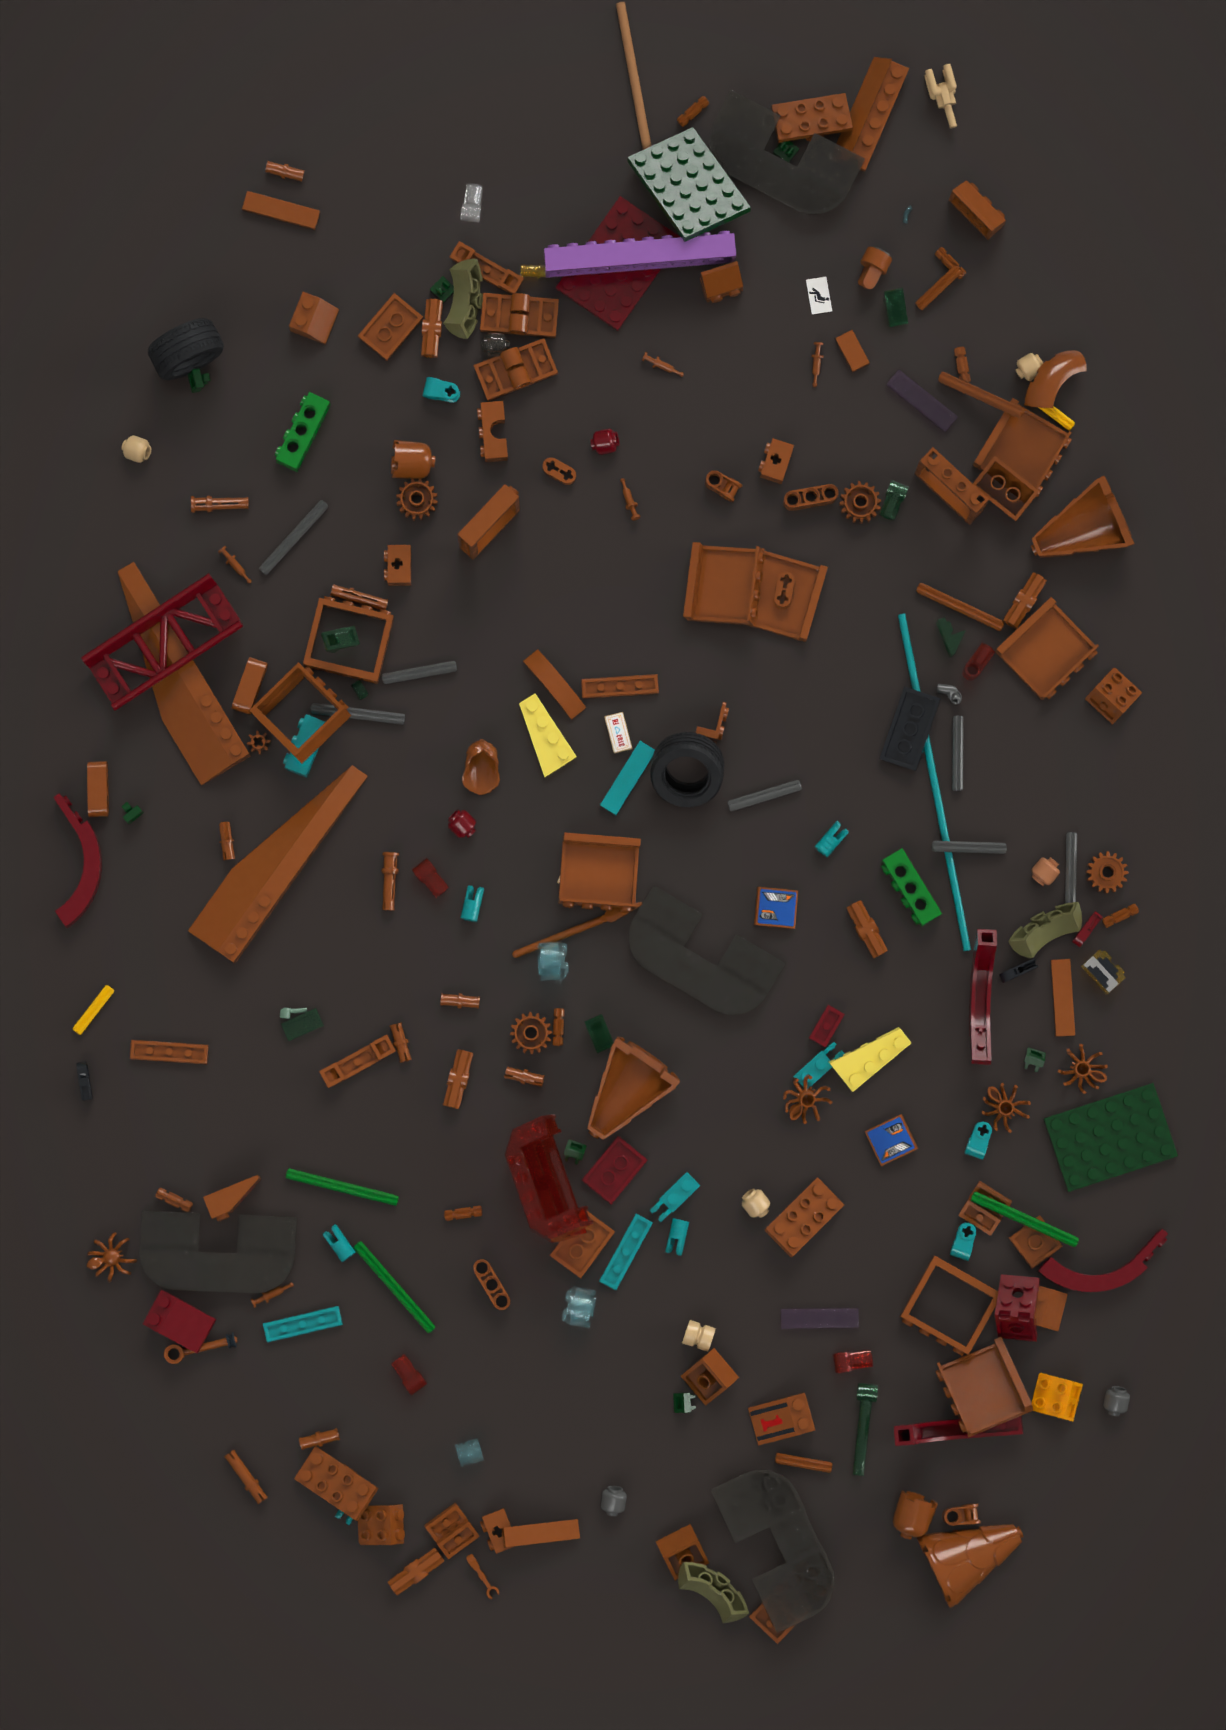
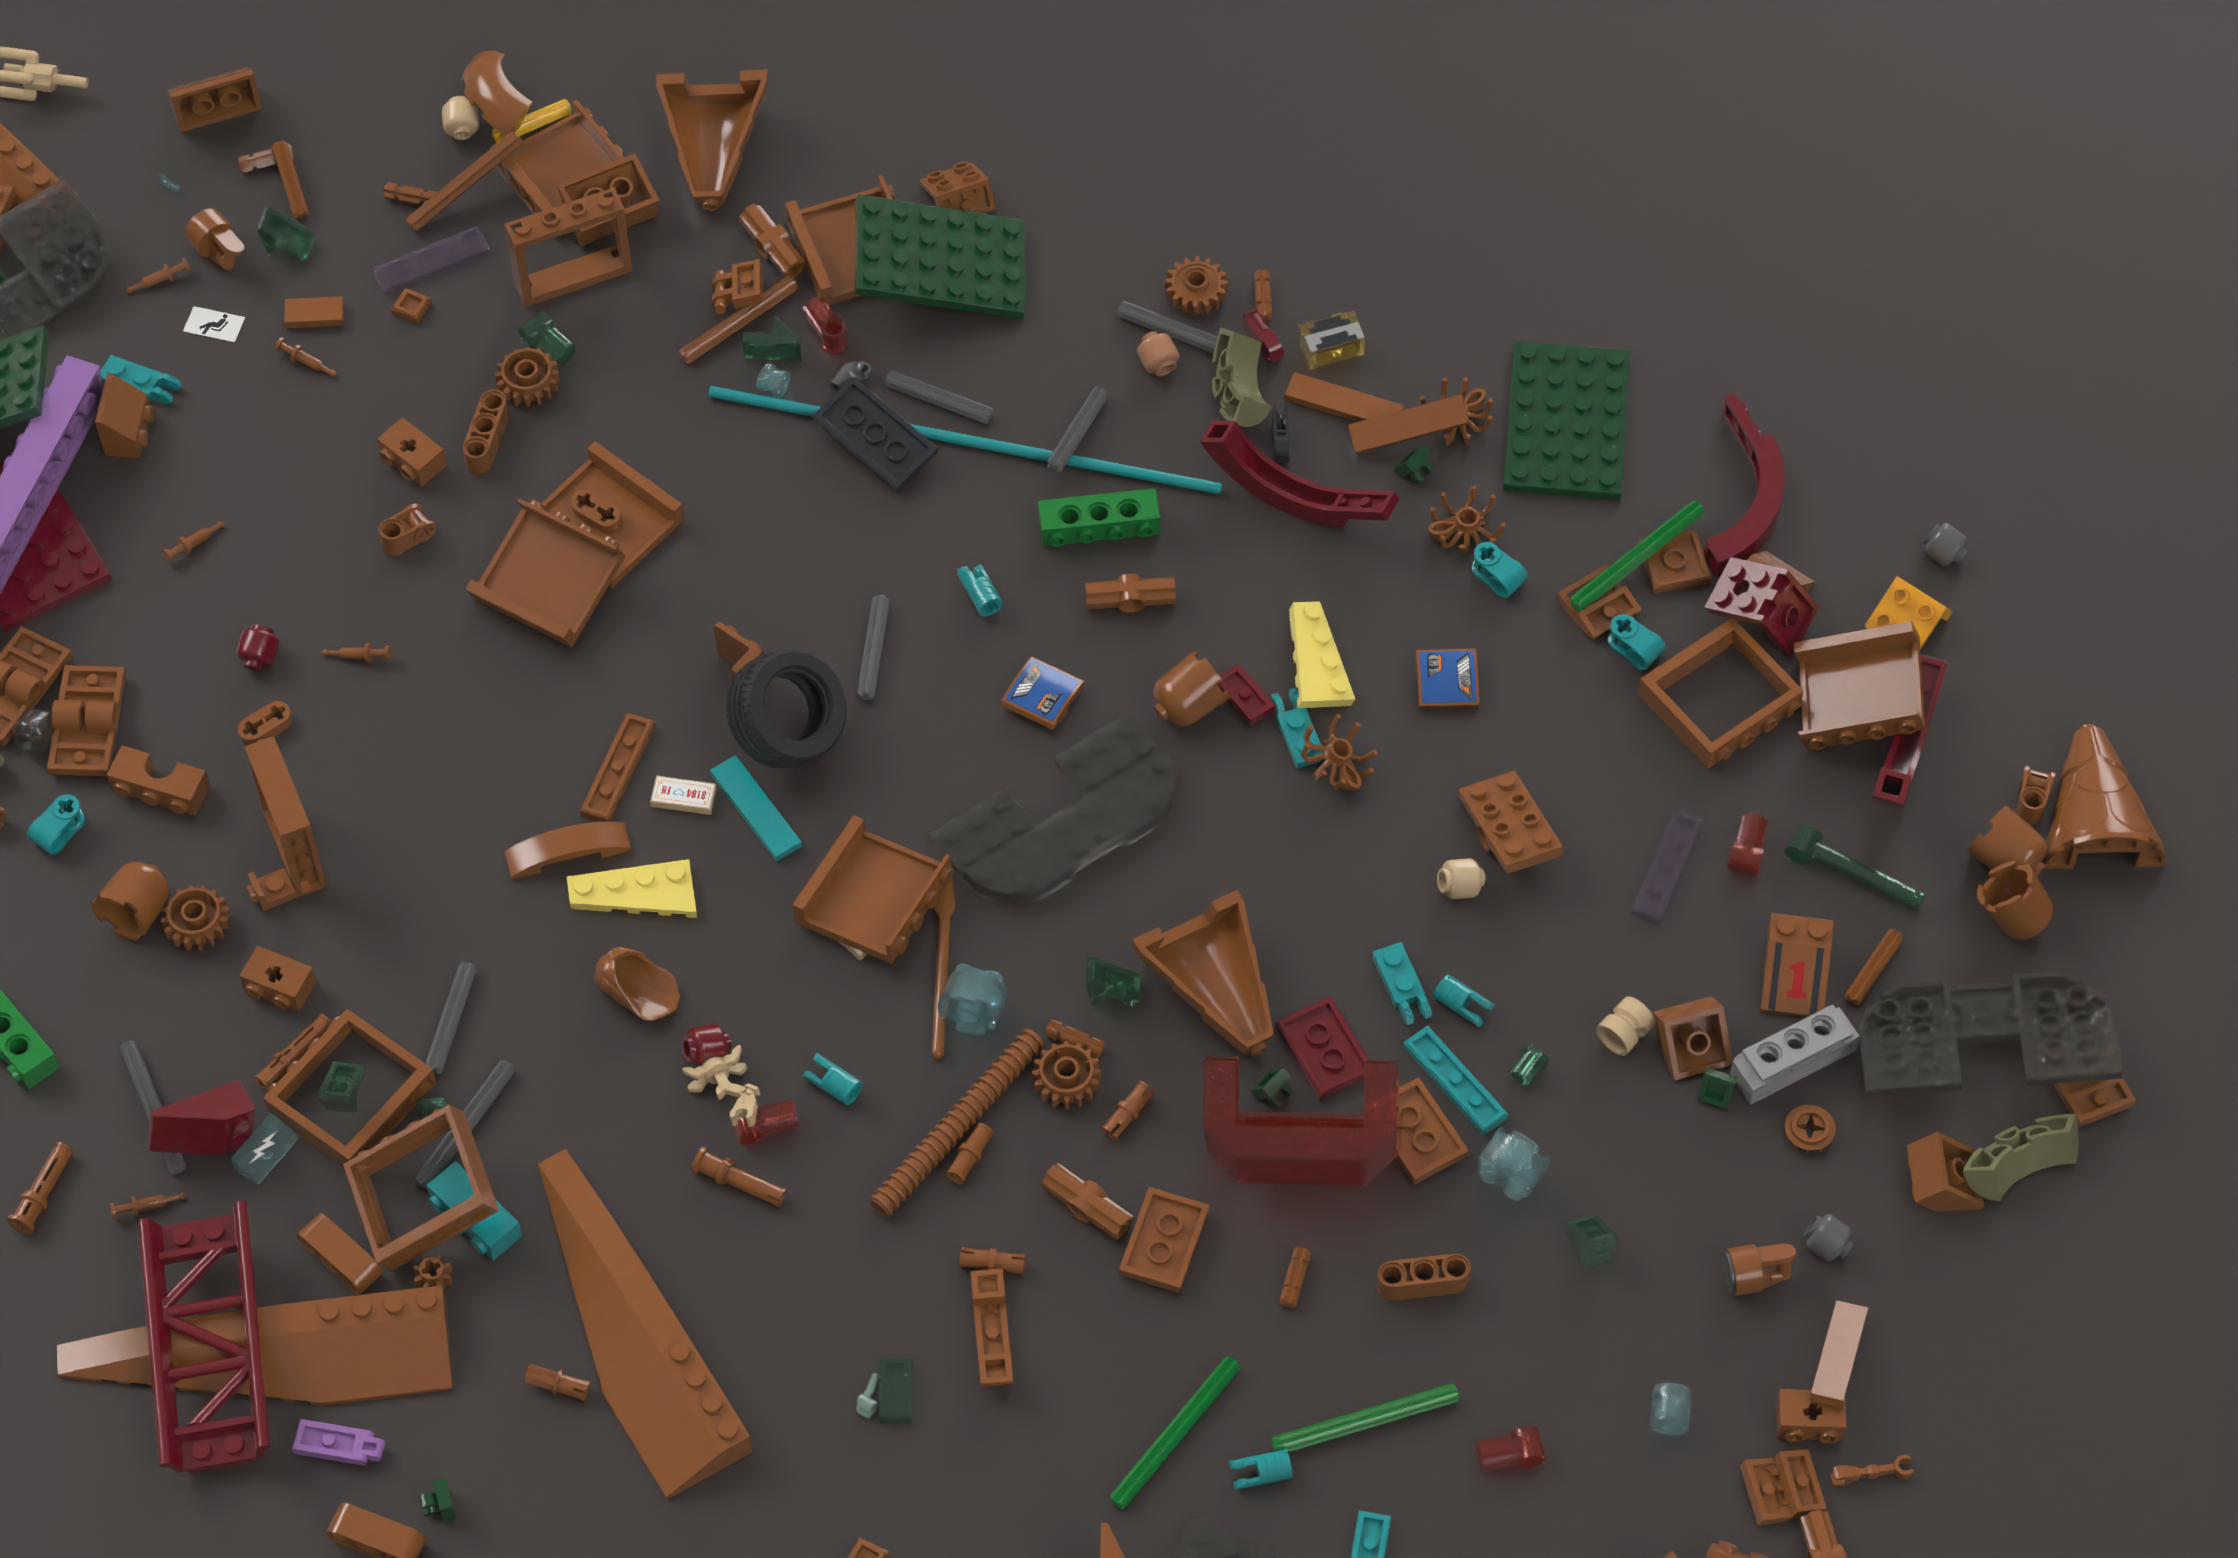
camera: 60 degrees left, 25 degrees down
(141, 741) = (337, 1443): none -> medium lavender hinge
(290, 578) = (204, 1123): none -> dark red slope
(294, 612) = (263, 1149): none -> clear light blue slope
(448, 837) = (716, 1072): none -> tan piece
(451, 528) = (271, 889): none -> dark orange bracket
(453, 1131) = (1164, 1240): none -> dark orange plate
(475, 985) = (956, 1122): none -> dark orange piece
(557, 1368) = (1593, 1240): none -> clear green slope
(574, 1463) = (1744, 1266): none -> dark orange piece
(651, 1290) = (1528, 1064): none -> clear green bush
(689, 1469) = (1821, 1121): none -> dark orange gear
(704, 1414) = (1794, 1053): none -> light grey brick
(757, 271) = (142, 378): none -> teal hinge
(809, 994) = (1188, 691): none -> dark orange cylinder
(836, 246) = (161, 275): none -> dark orange piece
(874, 1530) = (2016, 900): none -> dark orange cylinder
(883, 406) = (411, 306): none -> dark orange tile
(923, 649) = (773, 380): none -> clear light blue wheel
(982, 601) = (746, 286): none -> dark orange plate
(1053, 709) = (939, 257): none -> dark green plate
(1057, 1045) = (1408, 424): none -> dark orange tile

